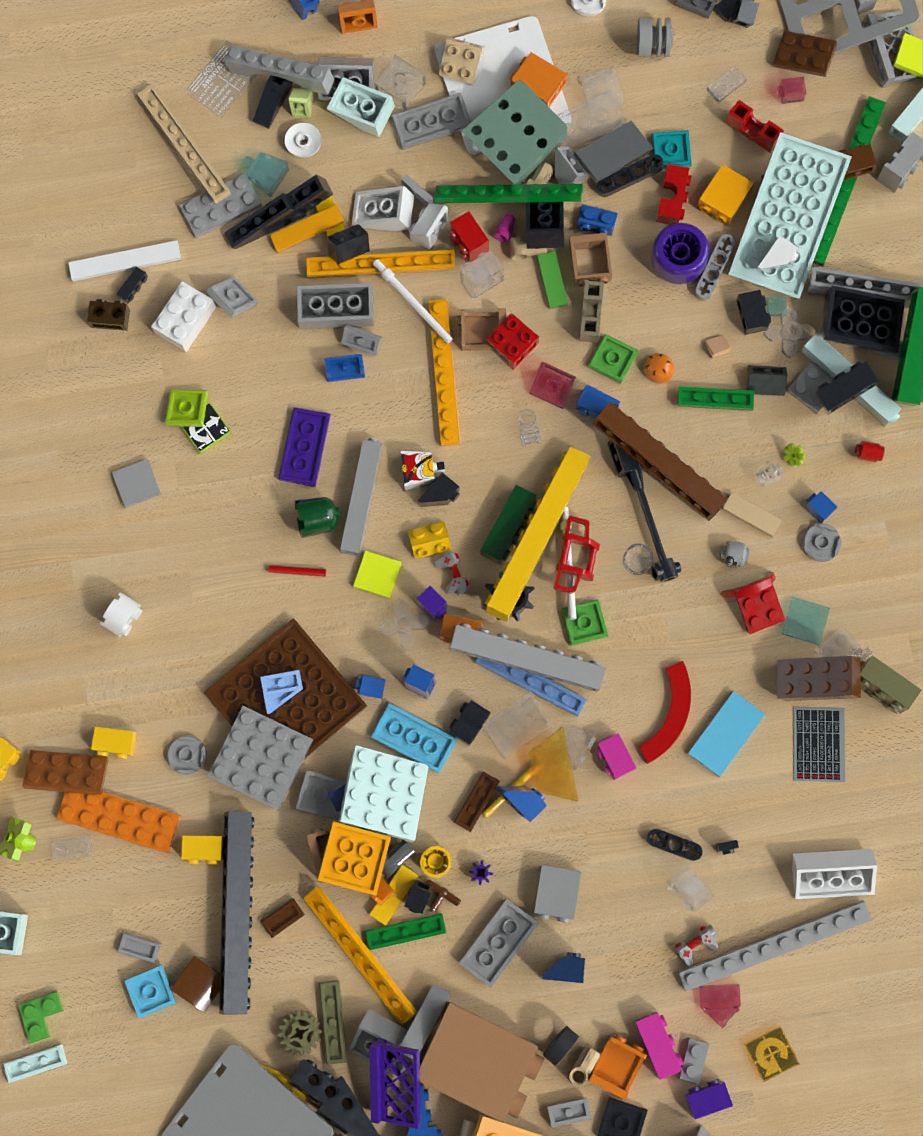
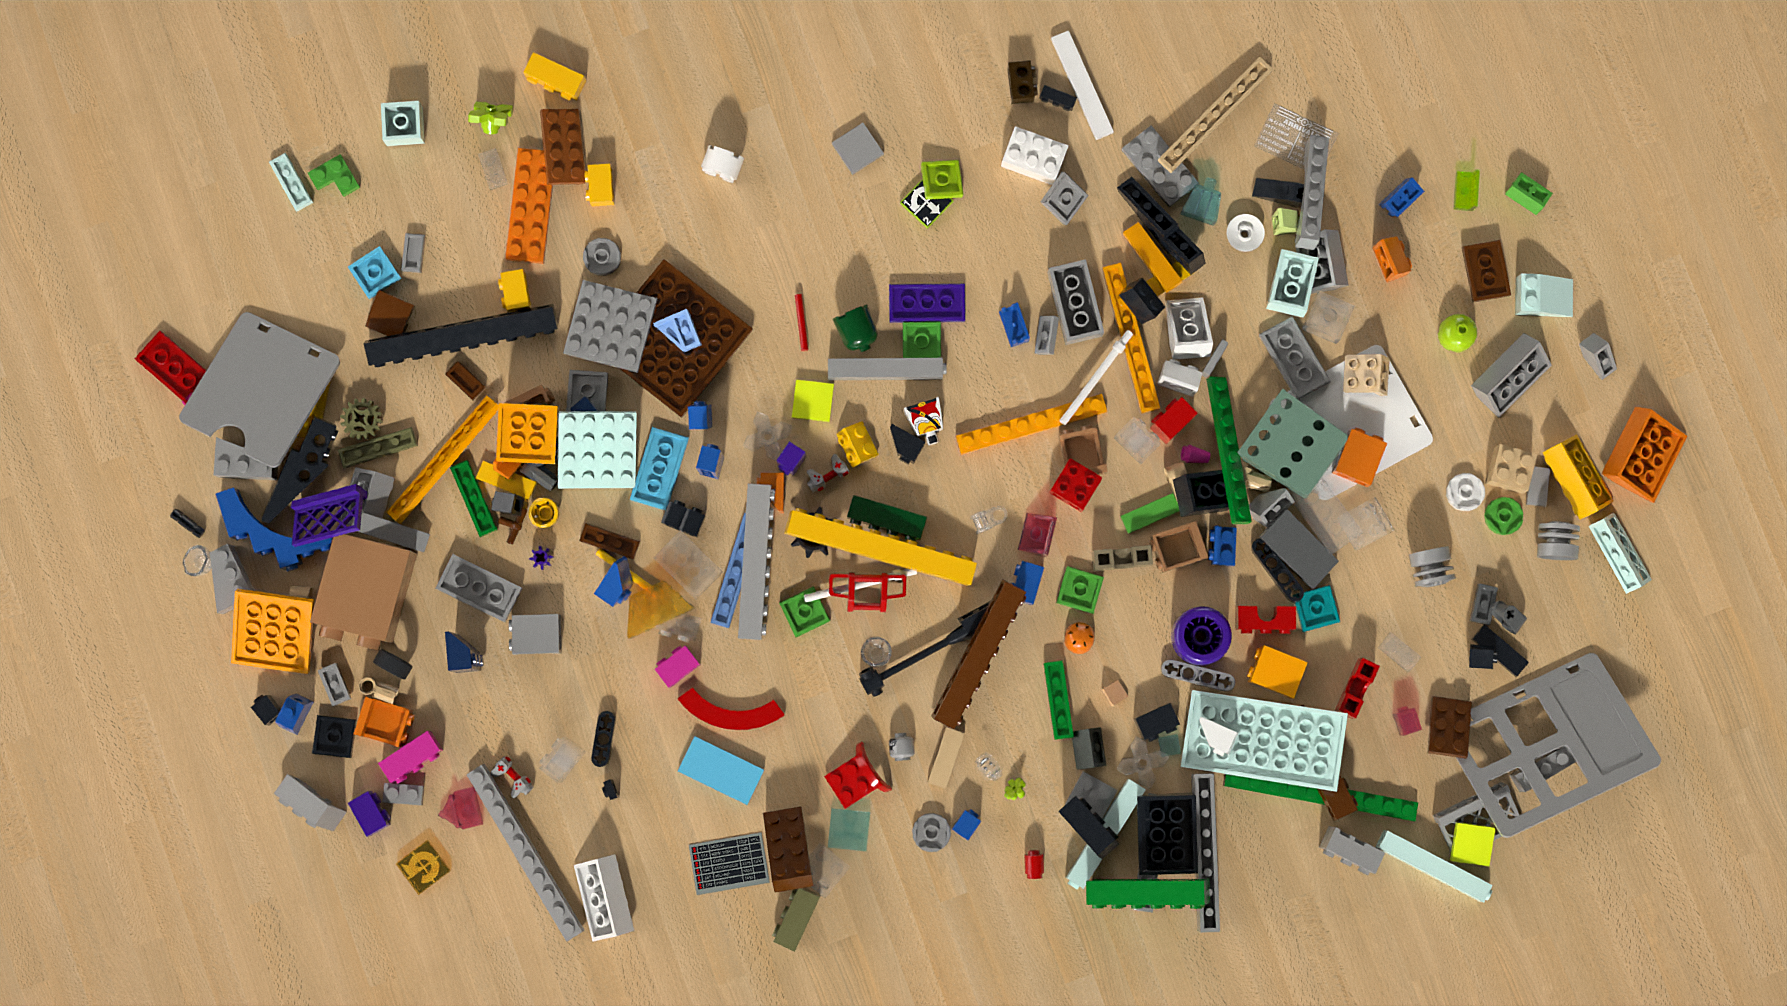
camera: 70 degrees right, 5 degrees up
(340, 459) = (921, 339): none -> bright green tile

